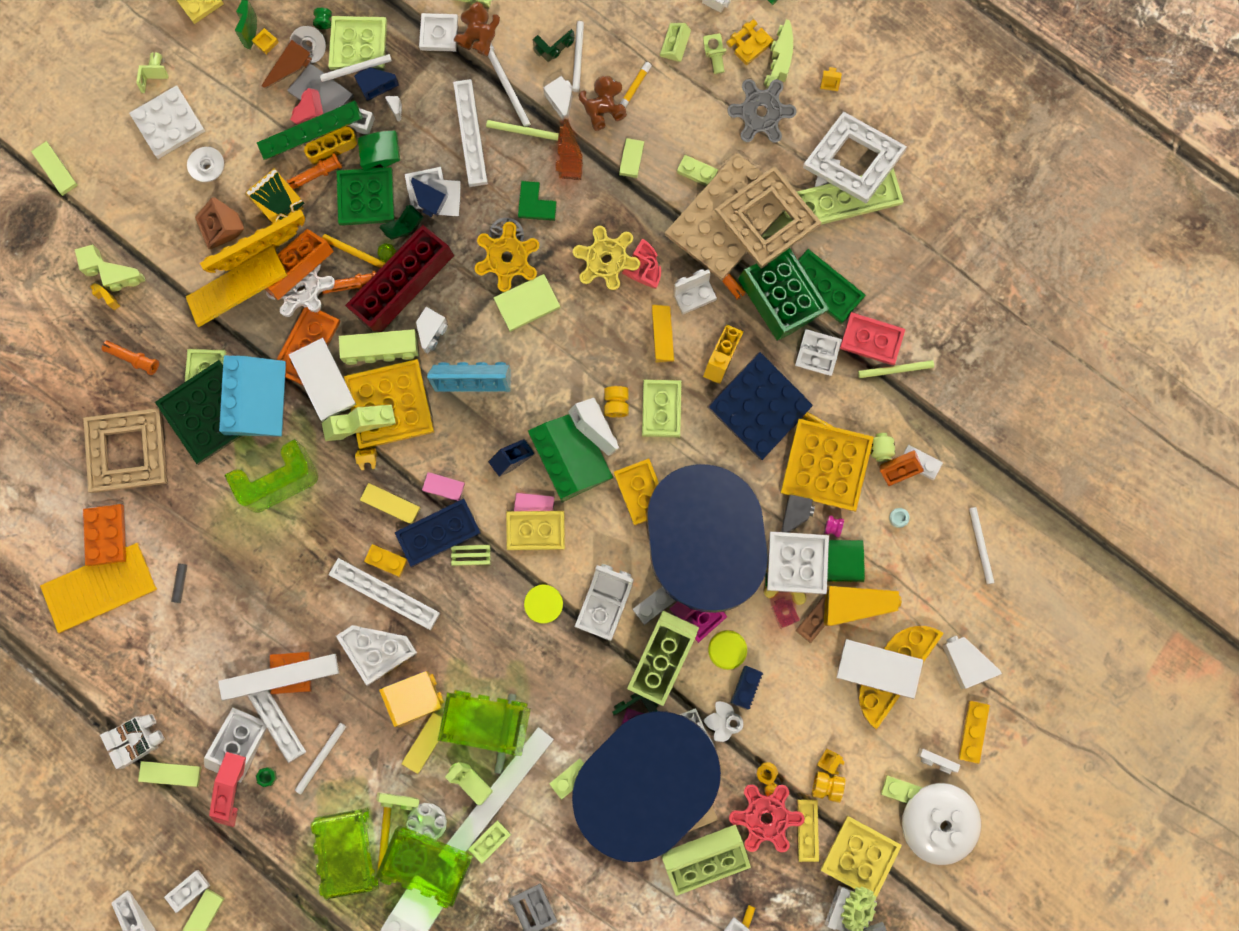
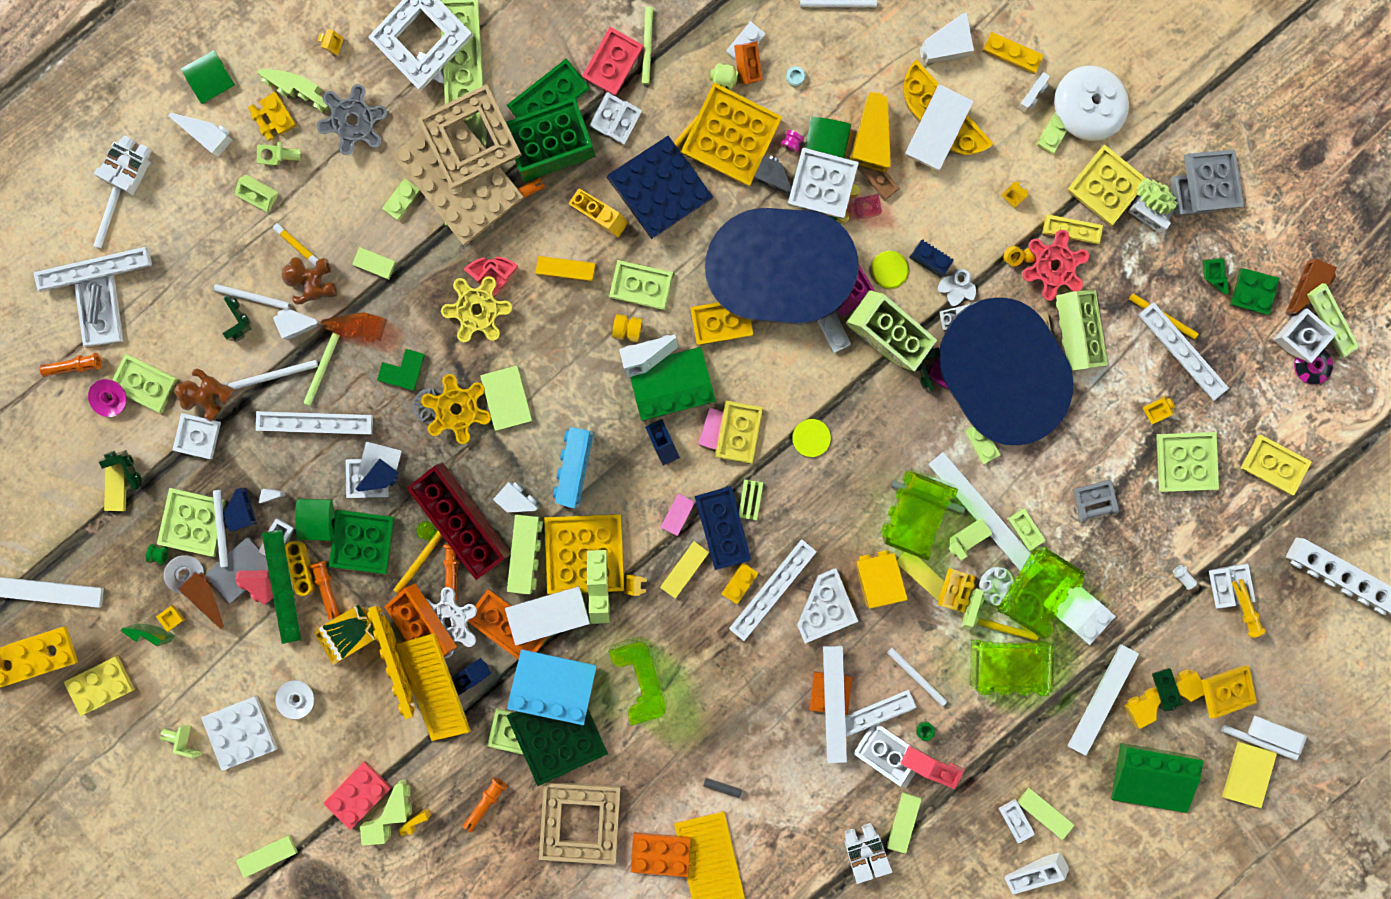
camera: 75 degrees left, 10 degrees up
(123, 238) = (357, 795): none -> coral plate
(218, 223) = (361, 695): nougat slope -> none
(252, 319) = (470, 676): none -> dark blue slope
(404, 225) = (401, 508): dark green bracket -> none
(417, 776) = (952, 590): none -> yellow plate
(605, 602) = (823, 378): white bracket -> none
(694, 291) = (531, 228): white bracket -> none
(828, 786) = (1039, 197): yellow wheel -> none

